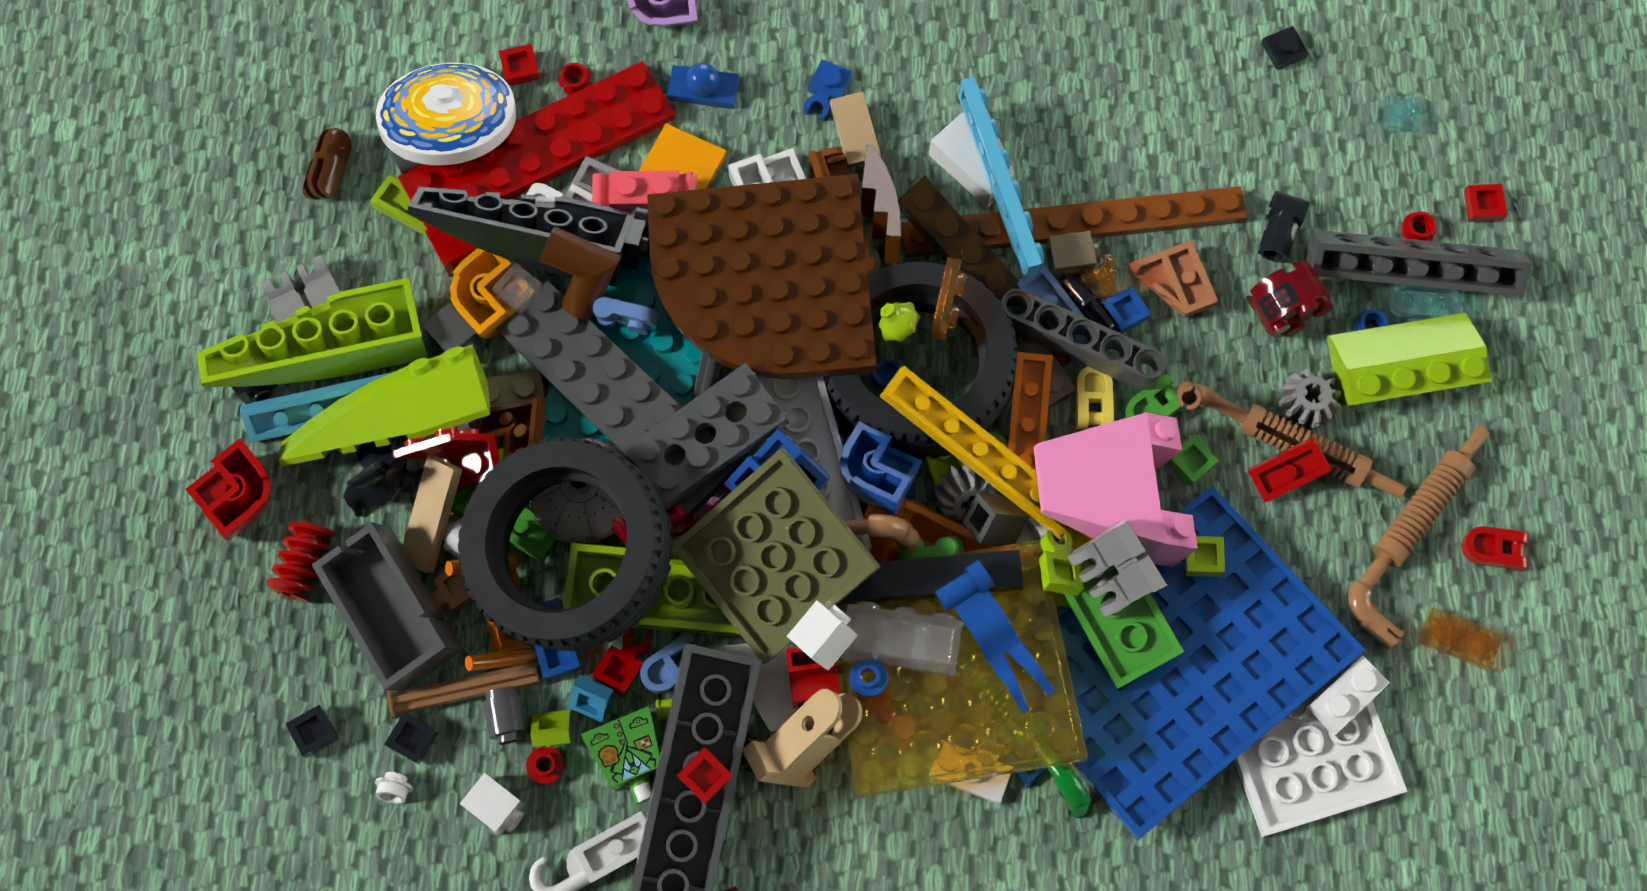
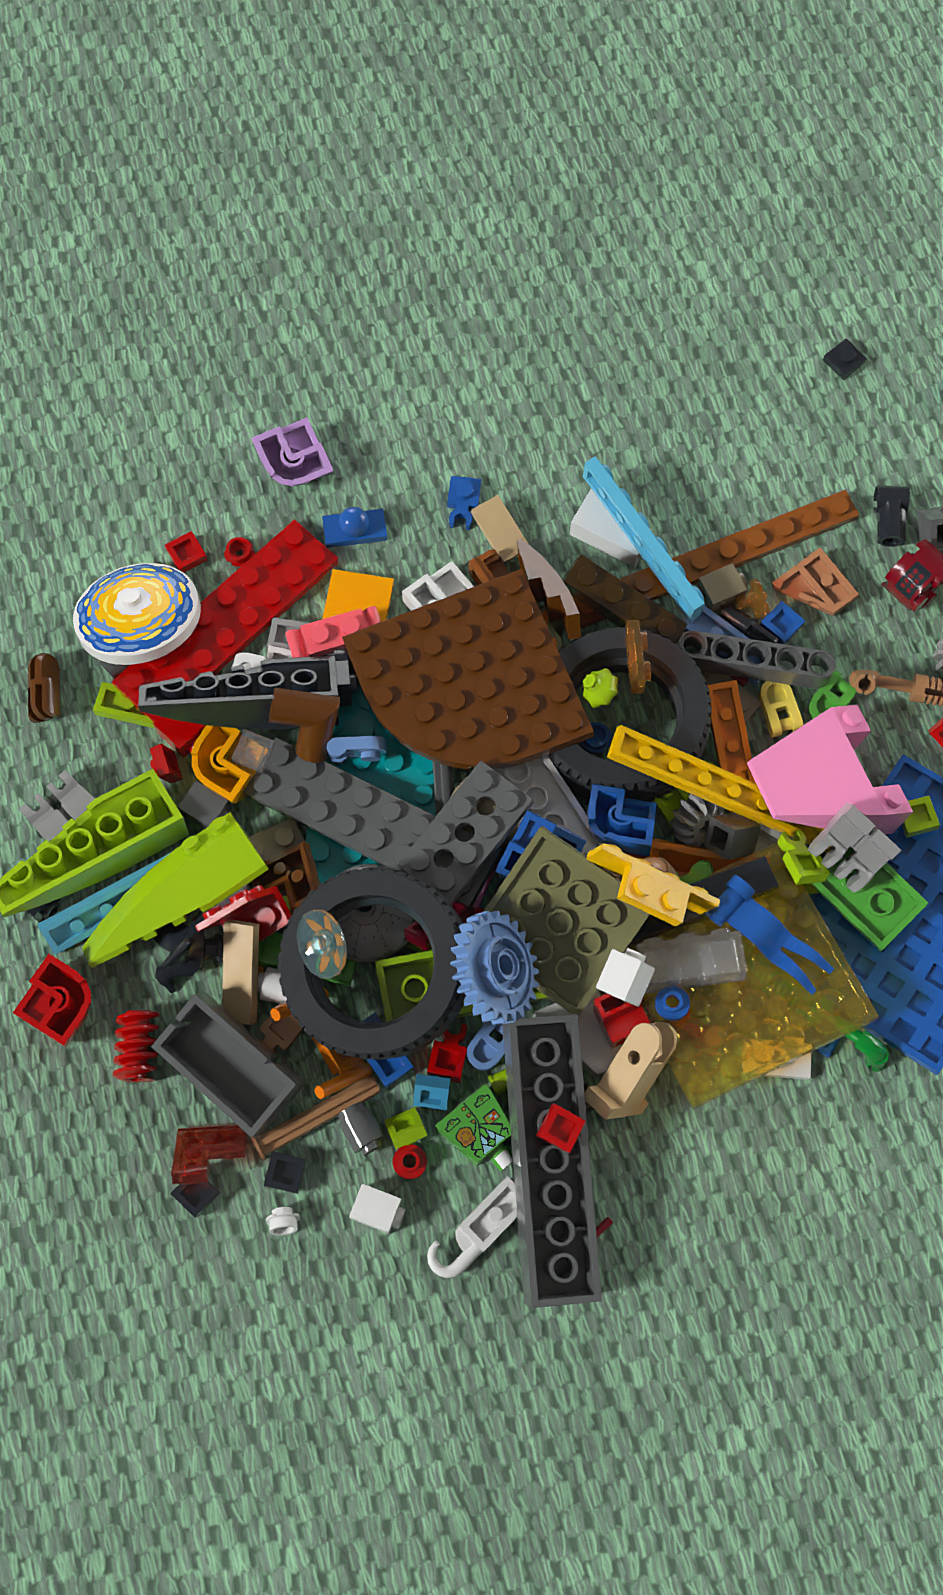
camera: 15 degrees left, 0 degrees up
(331, 683) = (199, 1145): none -> clear red plate
(426, 277) = (165, 763): none -> red plate
(509, 505) = (321, 944): none -> clear light blue dish
(684, 584) = (494, 967): none -> medium blue gear
(878, 549) = (651, 889): none -> yellow bracket
(1192, 460) = (880, 738): bright green plate -> none

